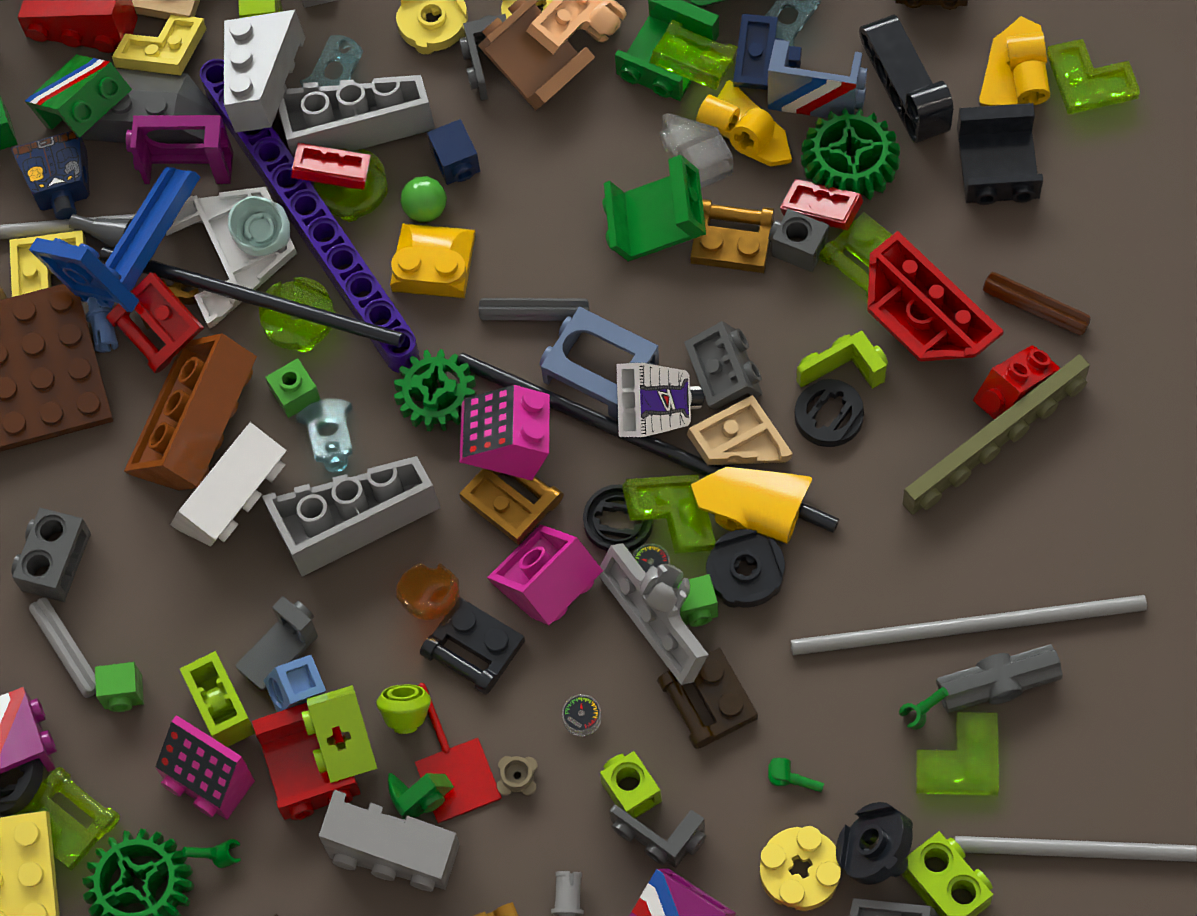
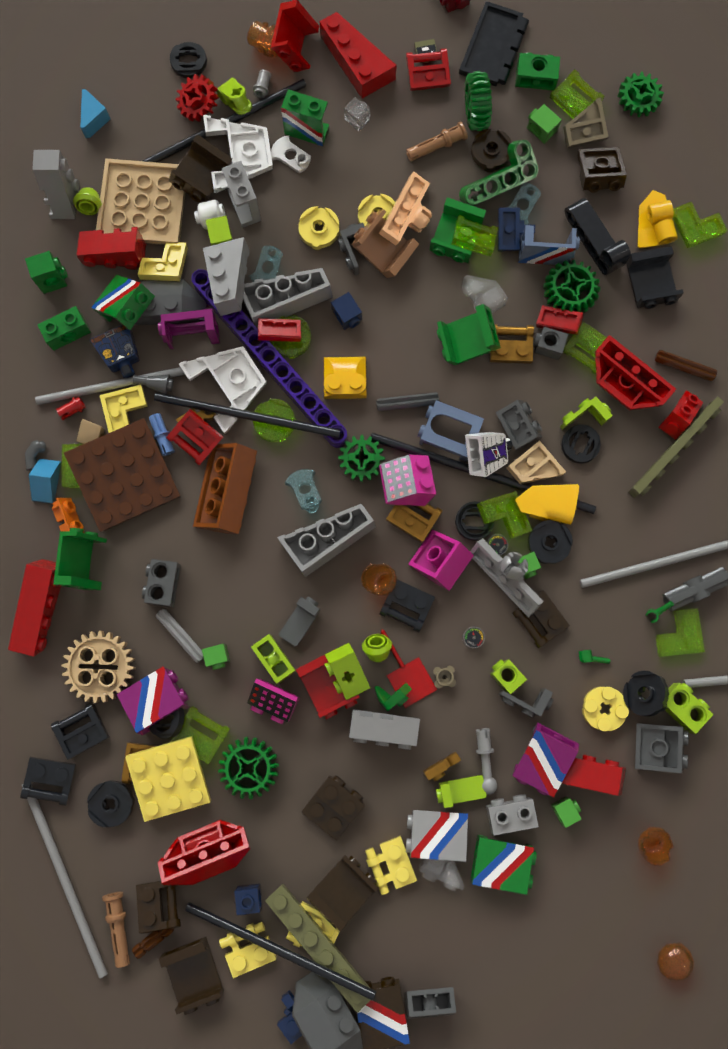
camera: 15 degrees left, 15 degrees up
(113, 281) = (175, 397): blue bracket -> none
(218, 854) = (289, 744): green hand -> none
(230, 487) = (257, 532): white slope -> none
(259, 226) = (245, 372): light aqua hair -> none
(292, 388) = (280, 473): bright green plate -> none
(294, 683) = (315, 644): medium blue brick -> none
(423, 199) = (334, 342): bright green piece -> none
(746, 126) = (510, 276): yellow panel -> none

